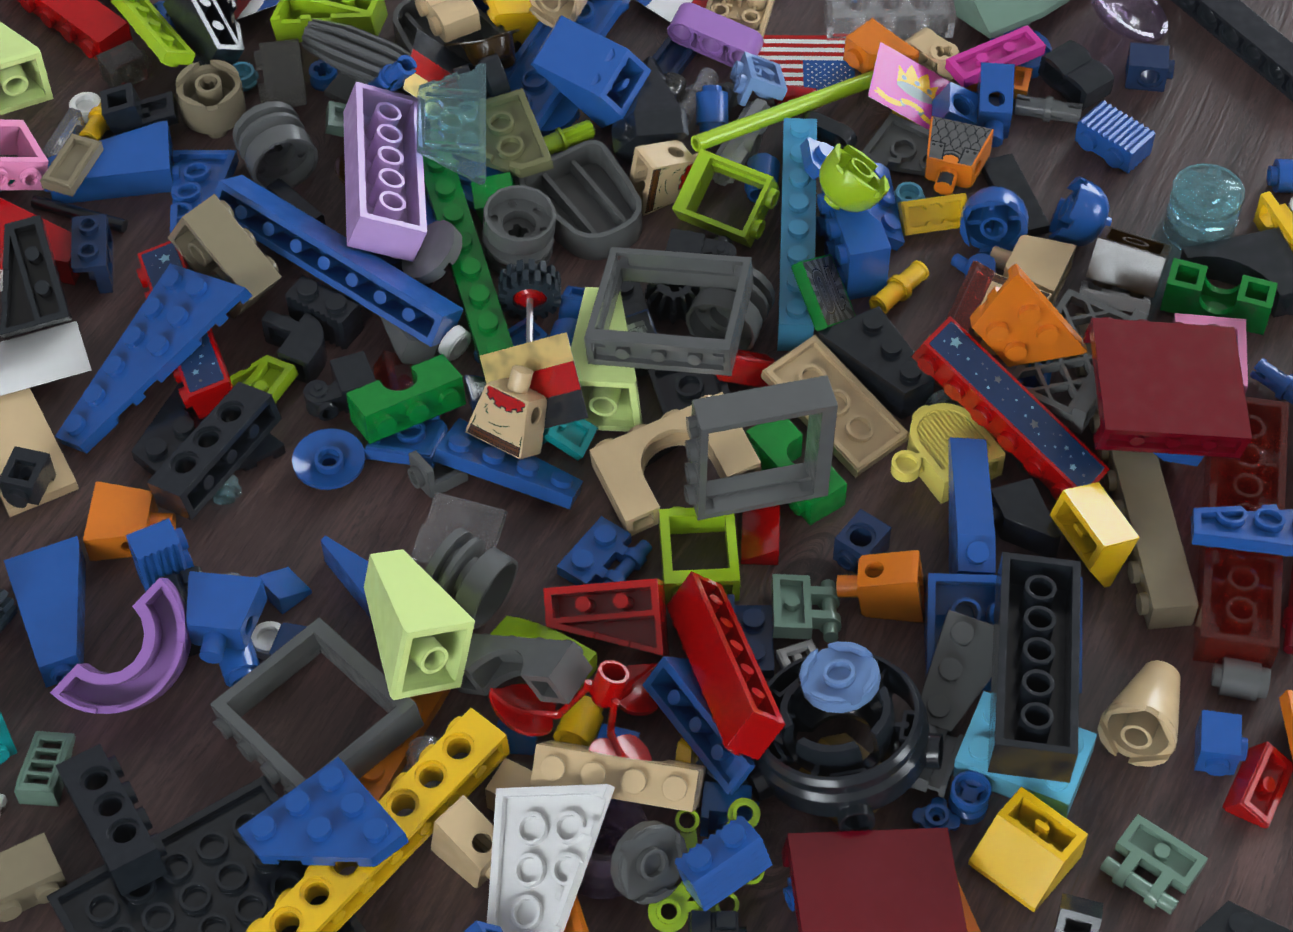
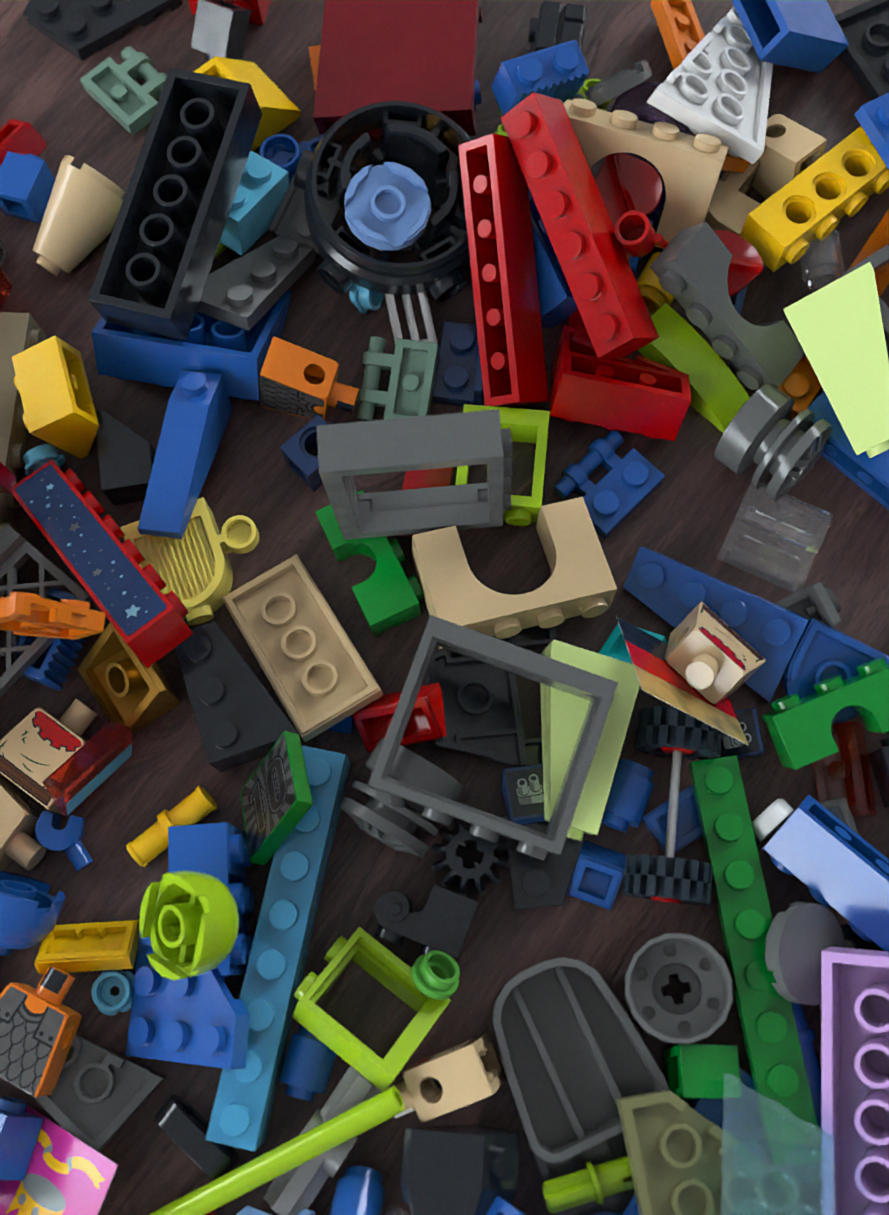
camera: 165 degrees left, 20 degrees up
(664, 682) = (579, 226): none -> red brick
(676, 217) = (436, 974): none -> bright green plate

